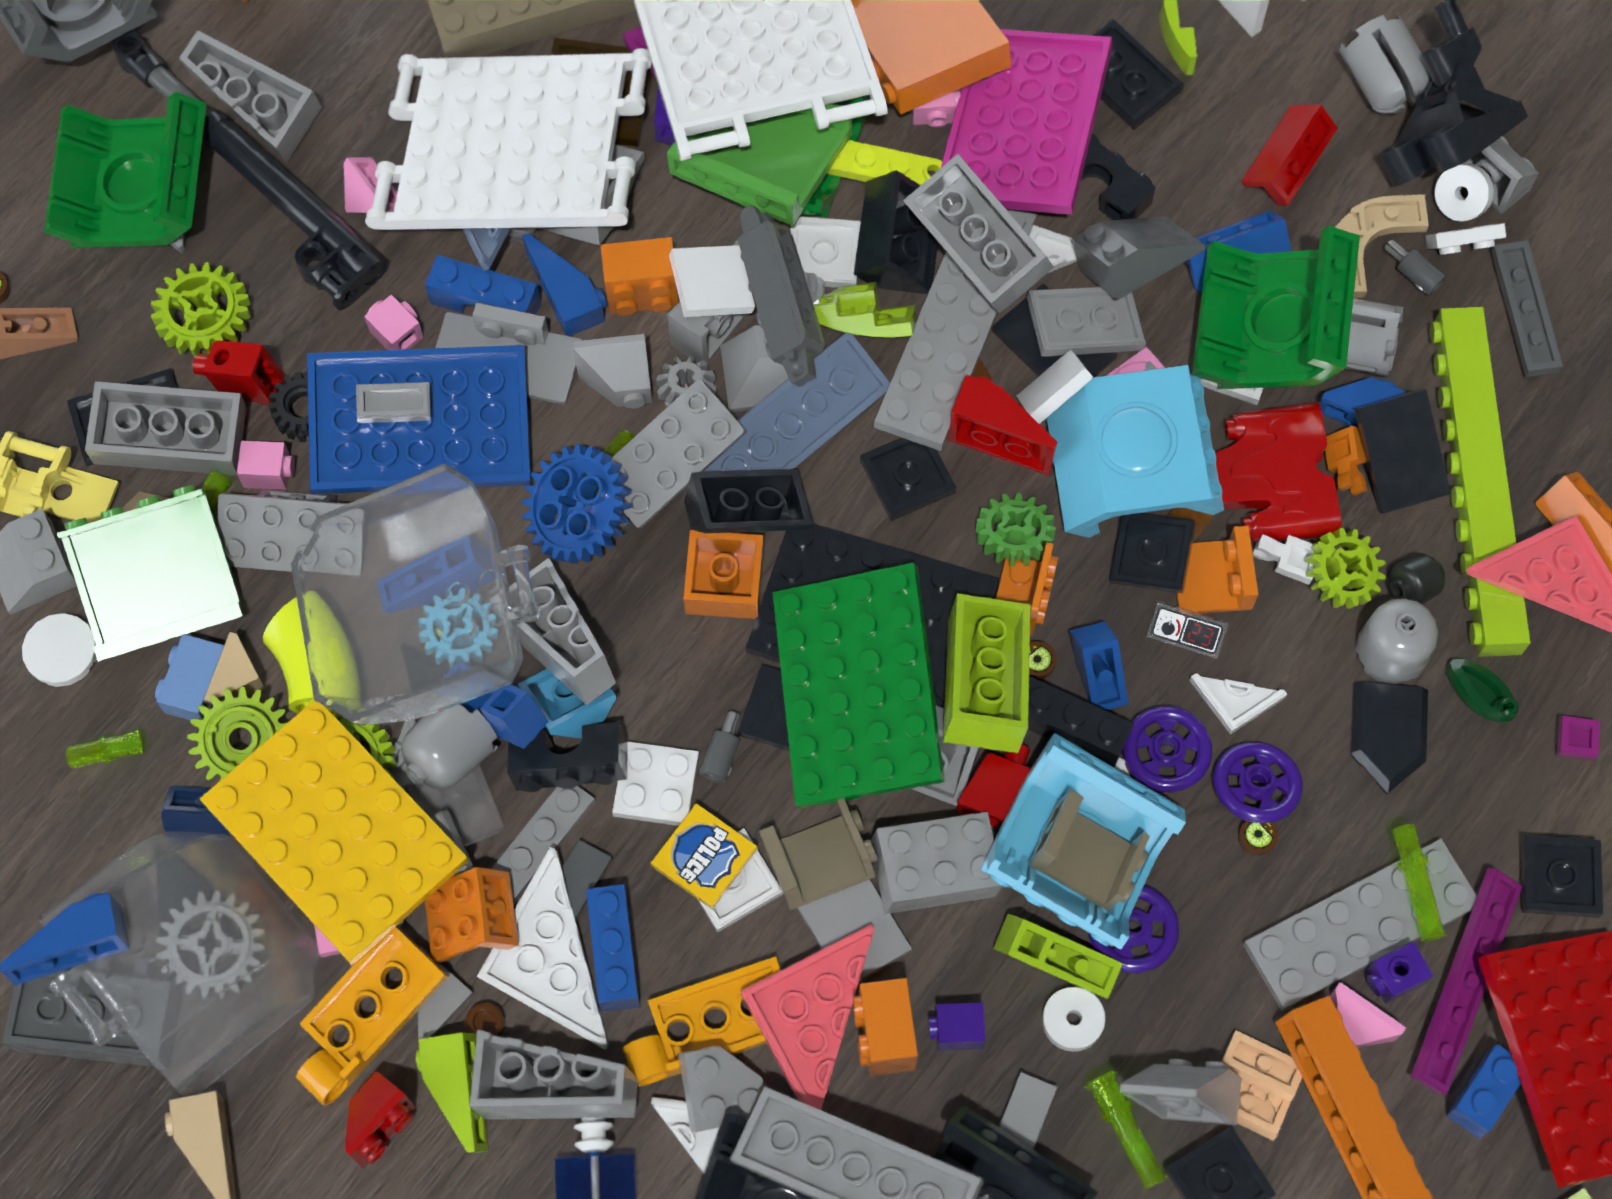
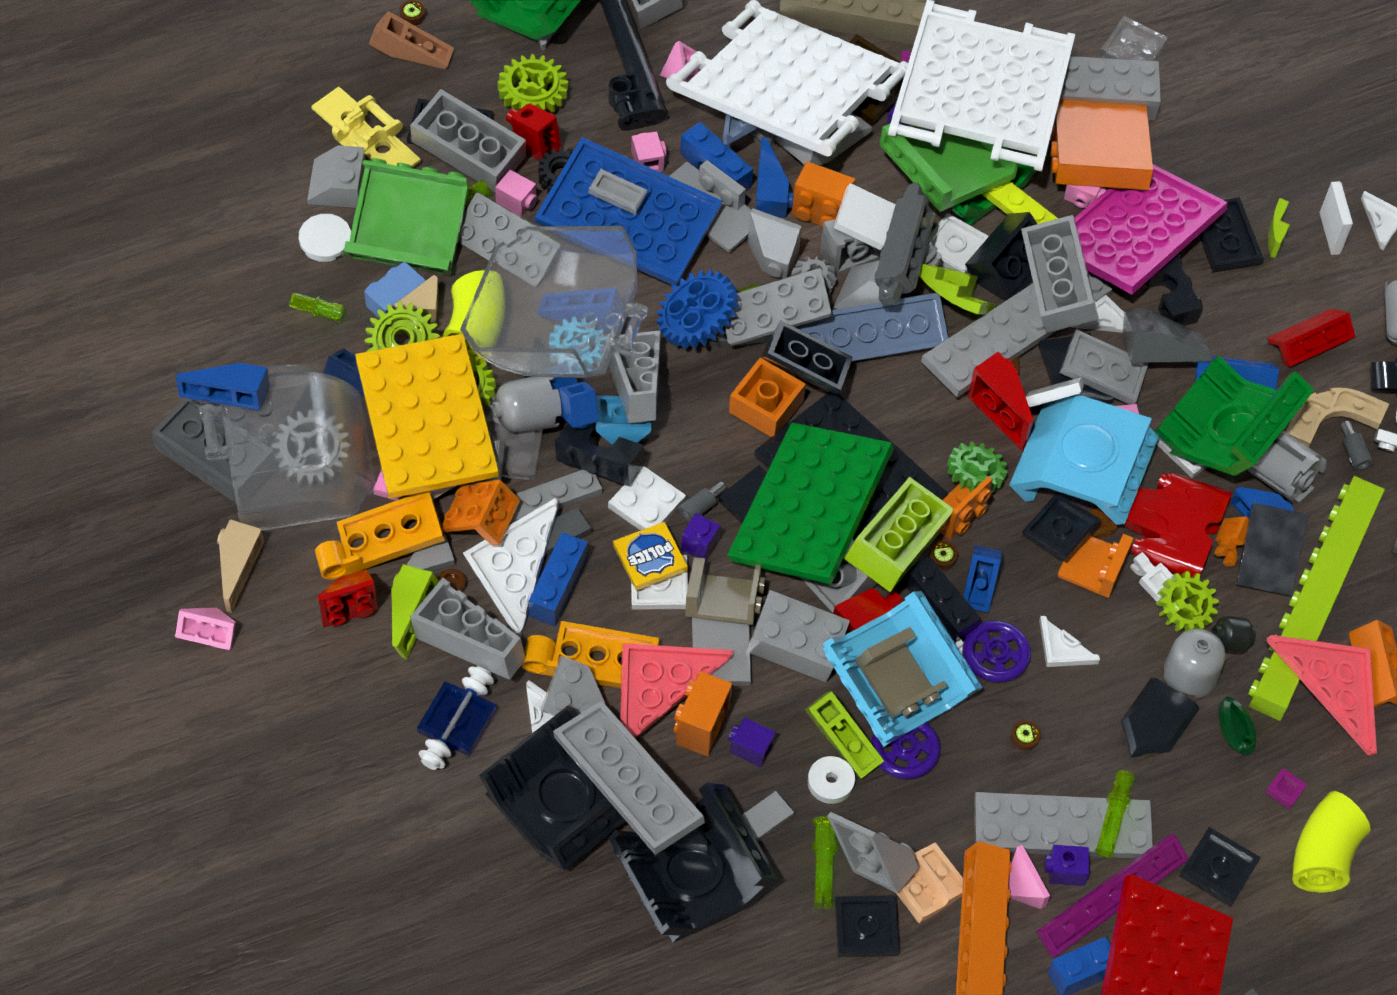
camera: 25 degrees right, 10 degrees down
(749, 798) = (700, 537): none -> dark purple brick
(907, 476) = (925, 402): black plate -> none
(1187, 629) = (1055, 586): tile -> none
(1265, 756) = (1045, 695): dark purple plate -> none

